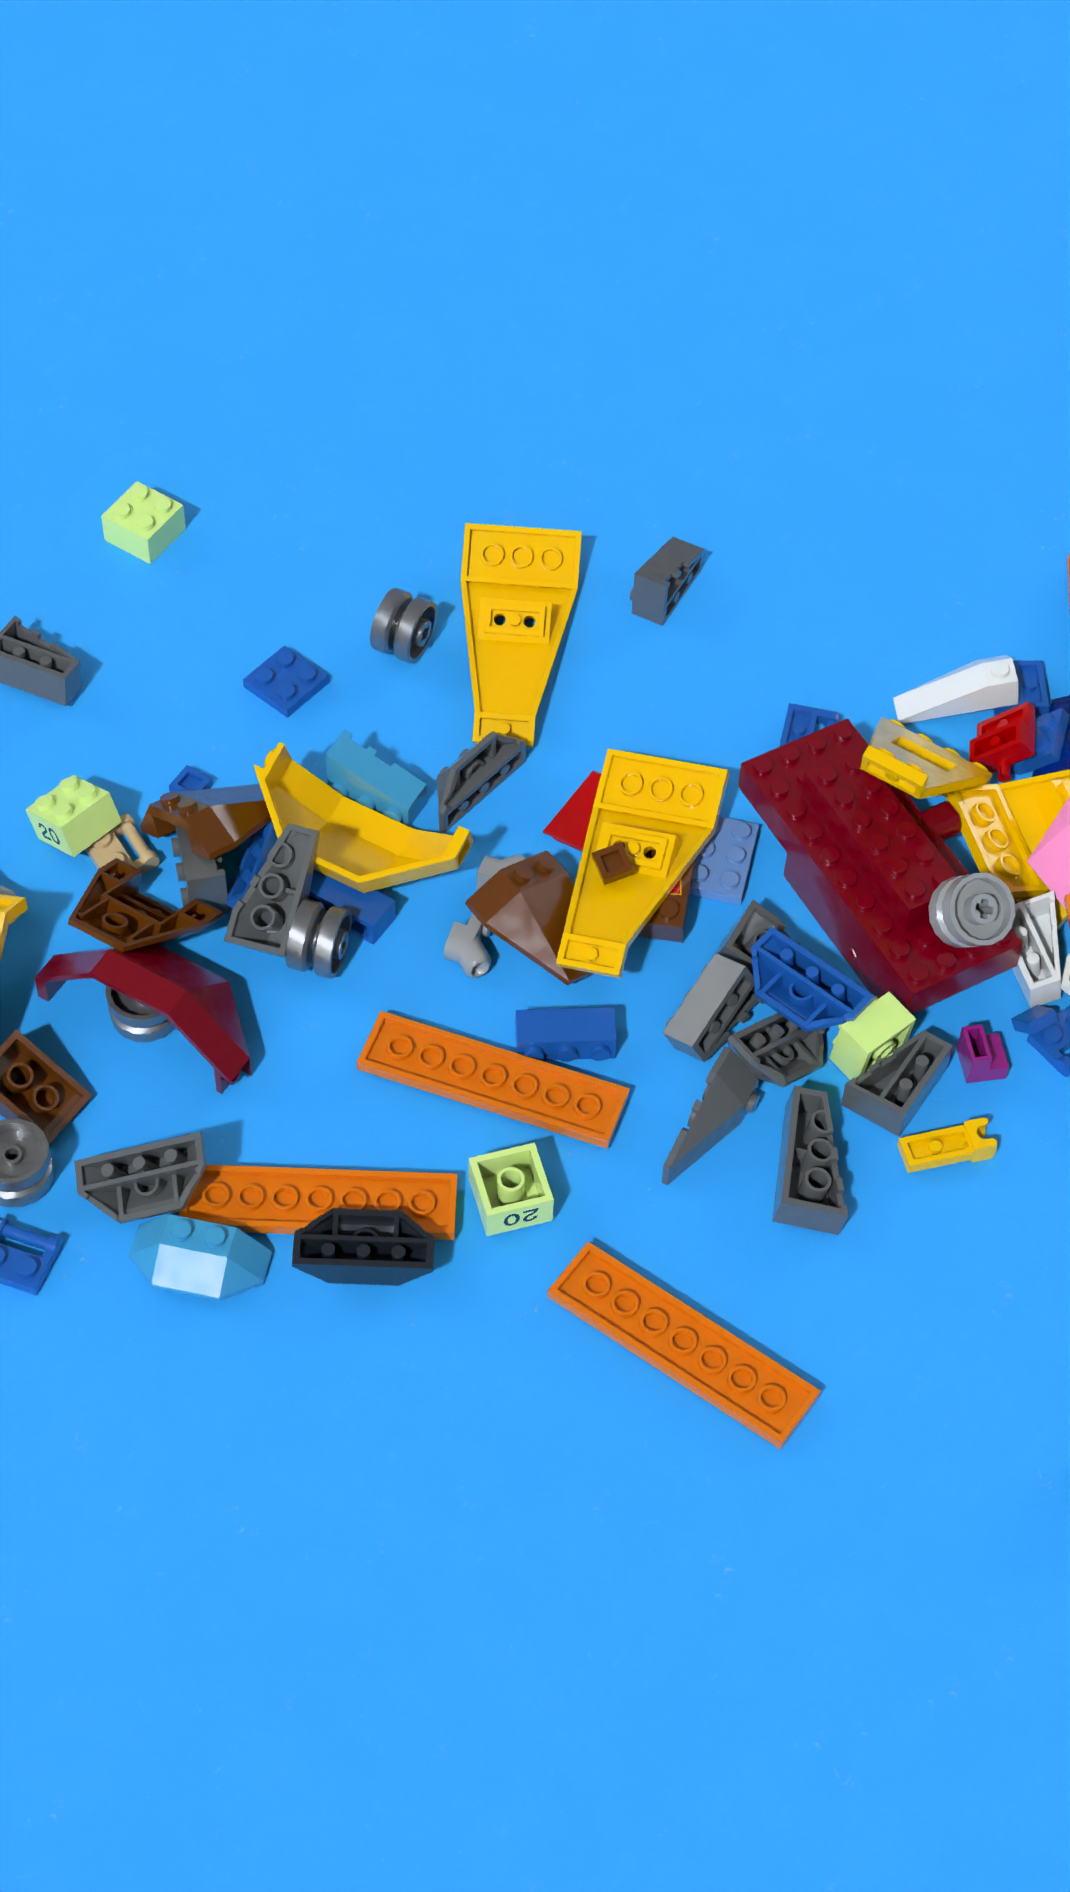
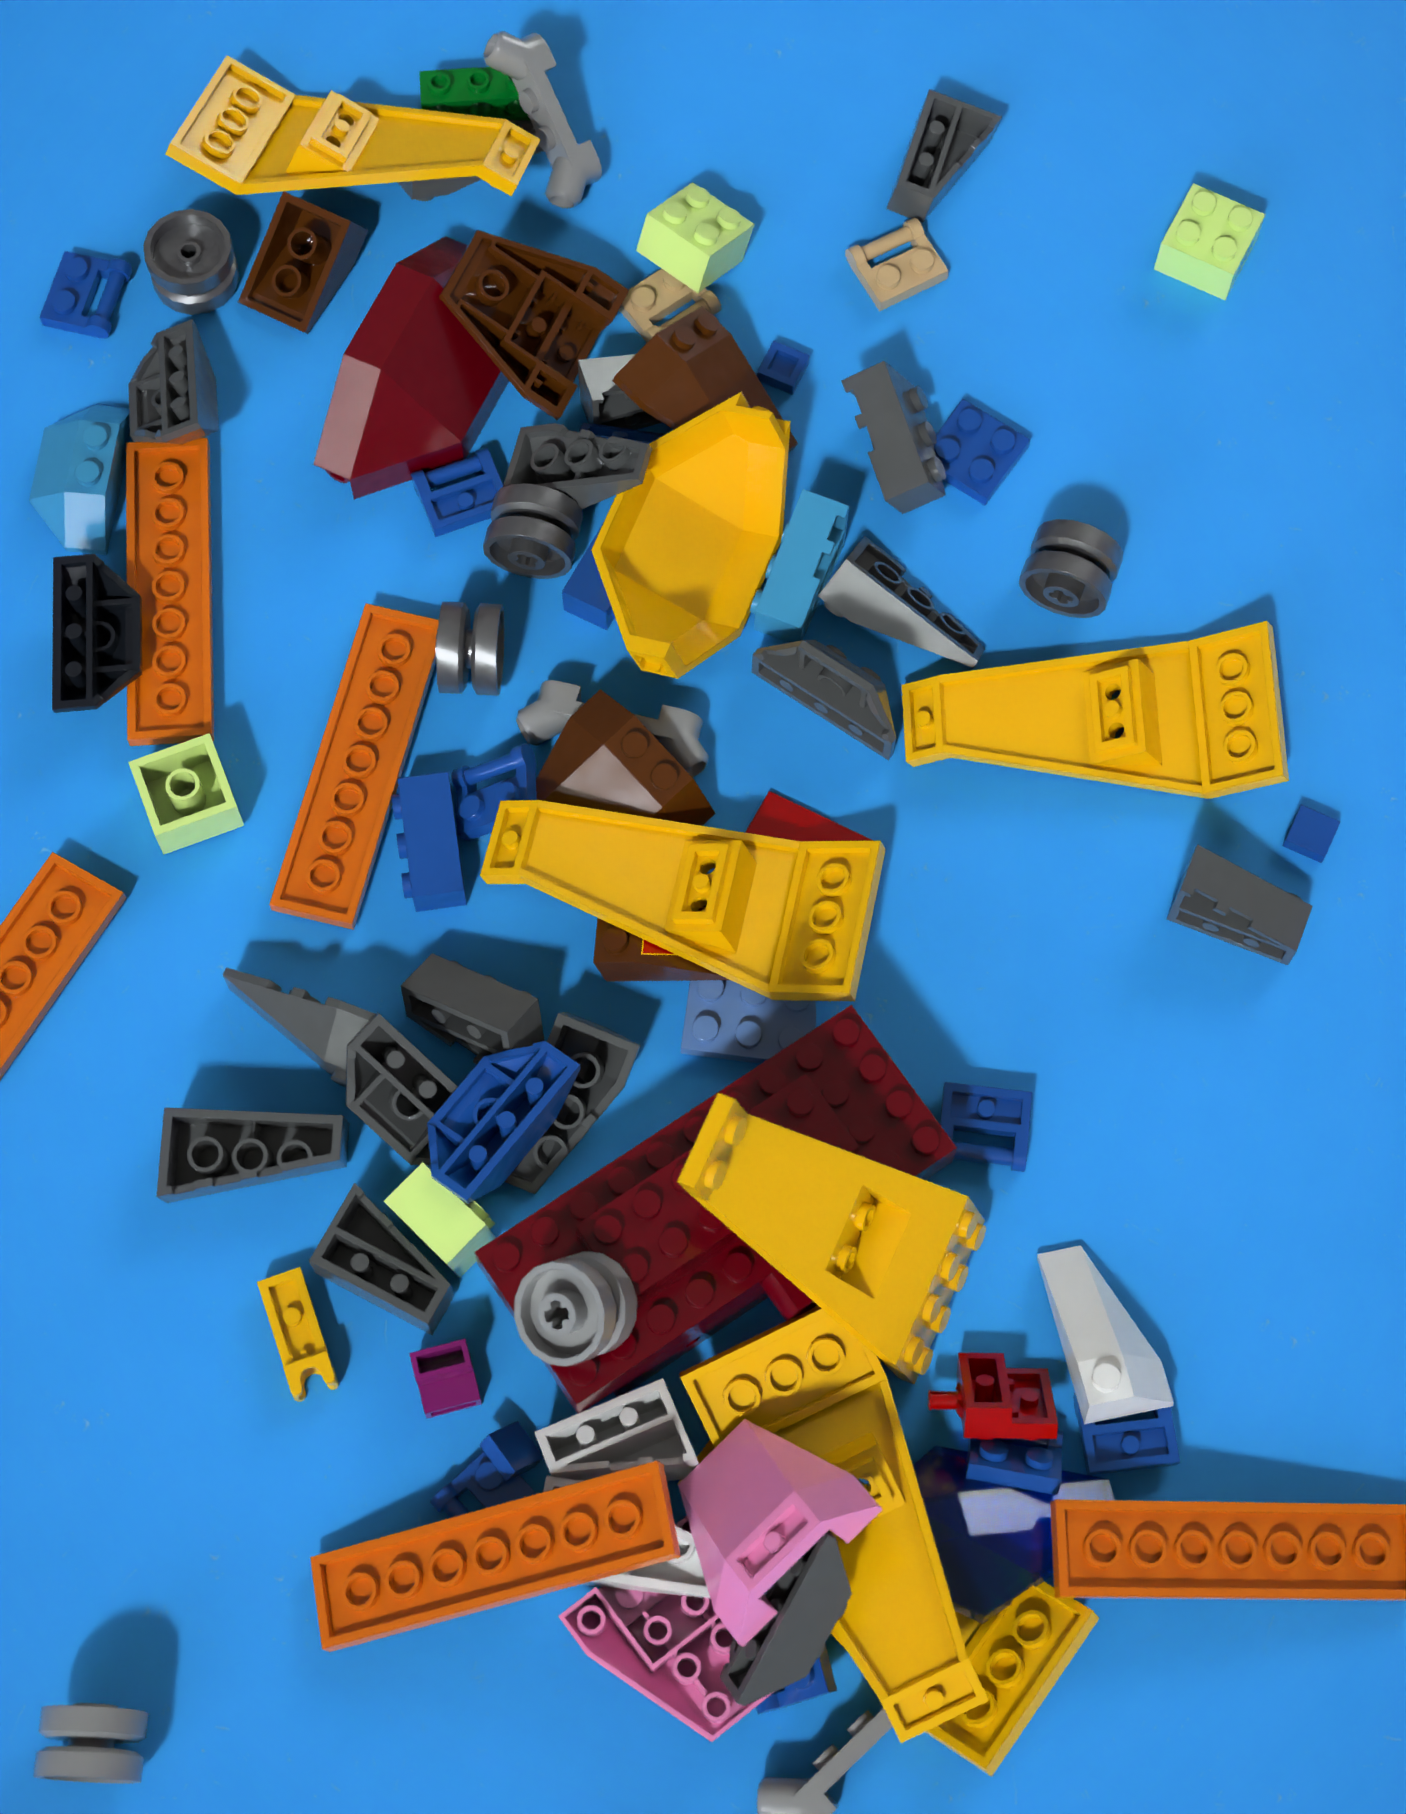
camera: 85 degrees right, 15 degrees up
(124, 704) = (901, 275): none -> tan plate
(274, 995) = (461, 502): none -> blue plate
(279, 711) = (899, 436): none -> dark grey wedge
(414, 735) = (876, 596): none -> dark grey wedge
(414, 984) = (465, 648): none -> flat silver wheel
(544, 981) = (479, 807): none -> blue plate
(610, 540) = (1311, 833): none -> blue tile
(612, 863) = (667, 855): reddish brown plate -> none

